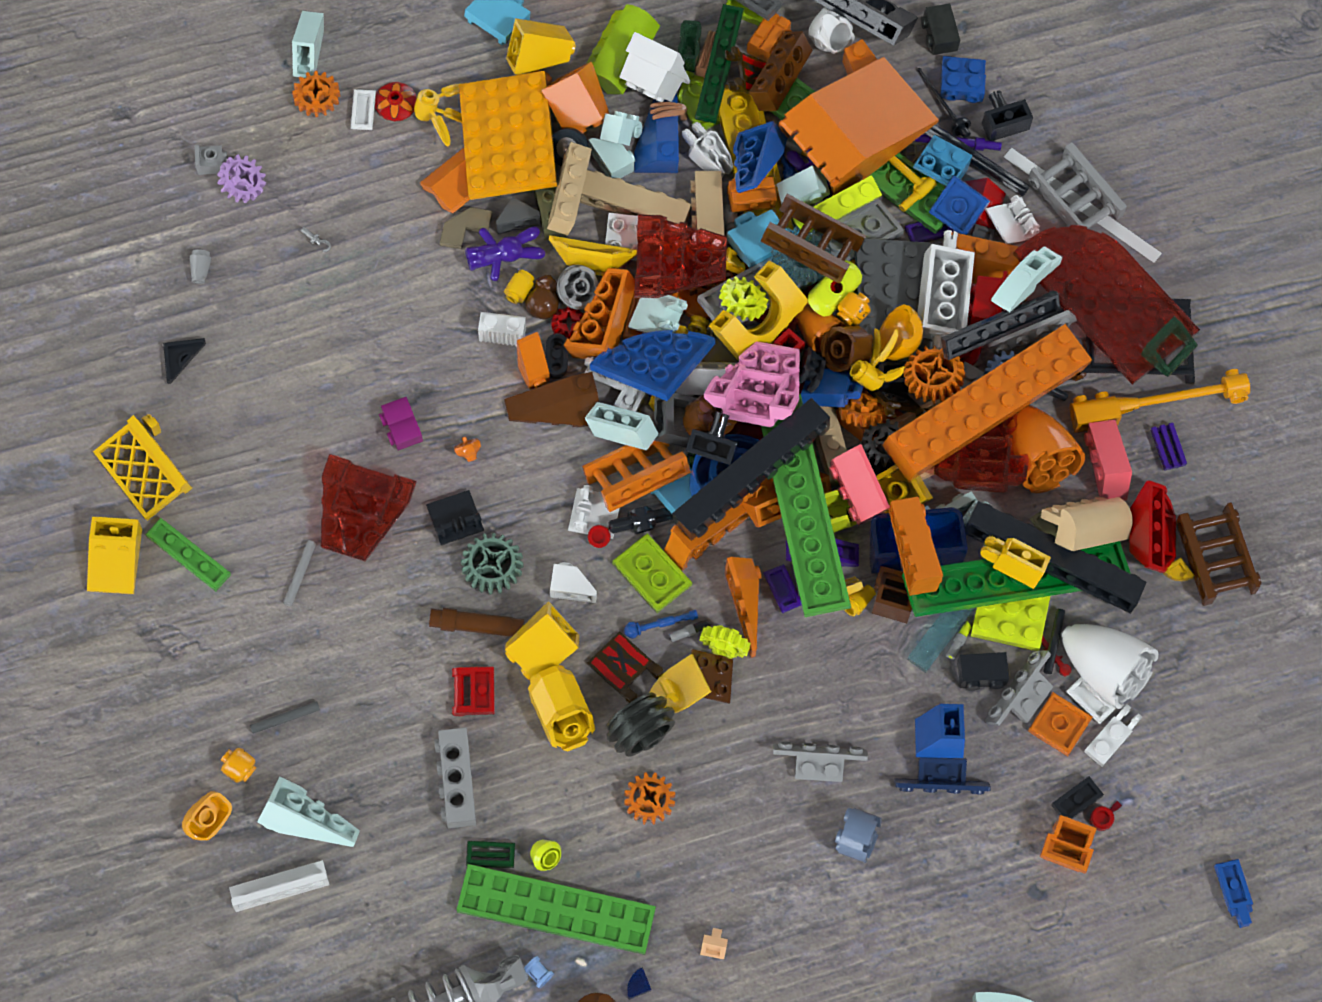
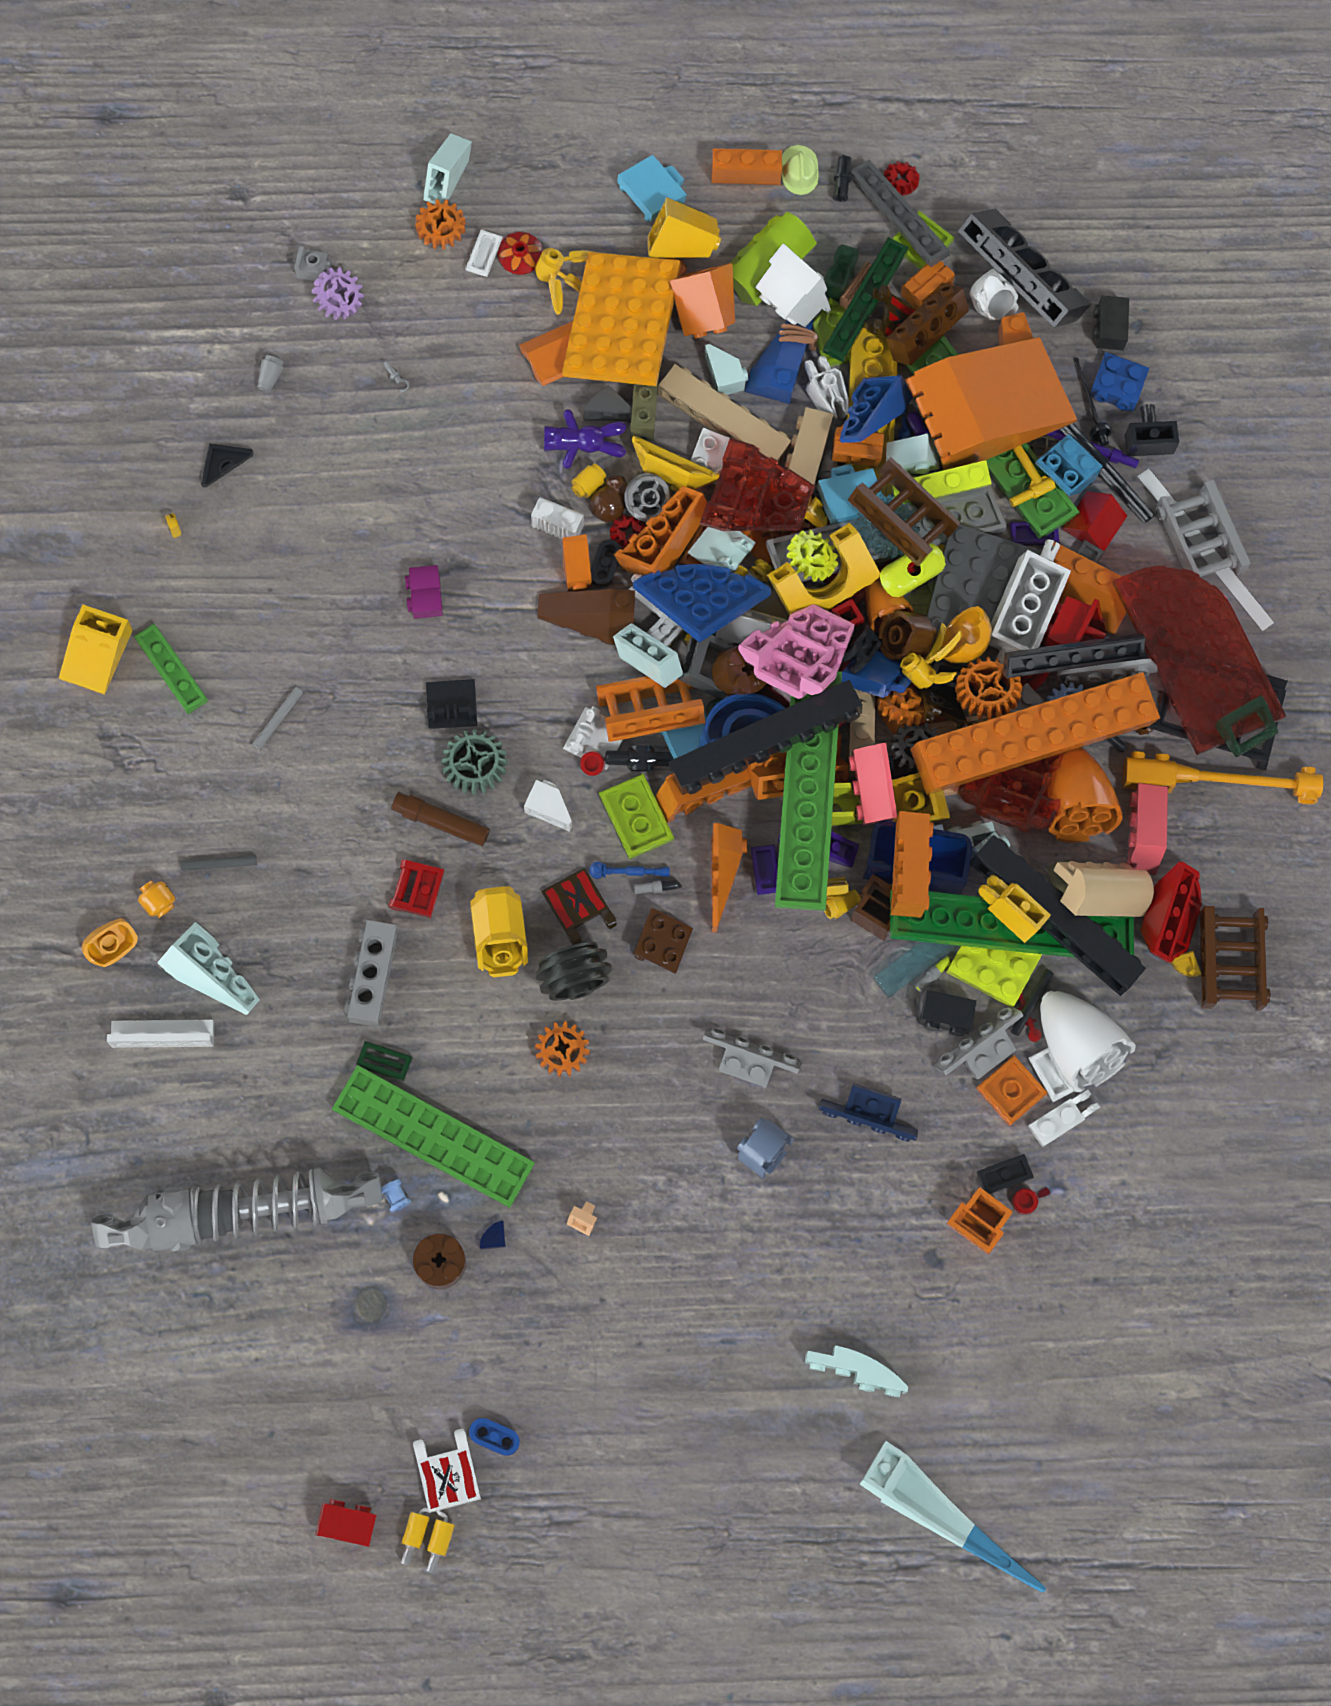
camera: 15 degrees right, 5 degrees up
(152, 451) = (170, 560): yellow fence -> none
(359, 507) = (356, 666): clear red wedge -> none
(468, 448) = (485, 636): orange piece -> none
(470, 219) = (559, 397): dark tan tile -> none
(542, 642) = (500, 857): yellow slope -> none
(545, 854) = (438, 1077): neon yellow cone -> none
(562, 140) = (683, 347): black wheel -> none
(569, 188) = (667, 391): tan brick -> none
(620, 128) = (741, 342): light aqua brick -> none
(682, 684) = (629, 942): yellow shield -> none
(713, 443) = (734, 700): black brick -> none
(725, 641) = (687, 909): neon yellow gear -> none
(854, 308) = (926, 596): light orange head -> none
(941, 732) = (882, 1065): blue slope -> none
(959, 206) = (1071, 516): blue tile -> none
(1013, 221) = (1125, 547): white hinge -> none
(1025, 277) = (1114, 612): light aqua slope -> none
(1178, 448) = (1226, 830): dark purple tile -> none
(1235, 891) = (1141, 1316): blue hinge -> none

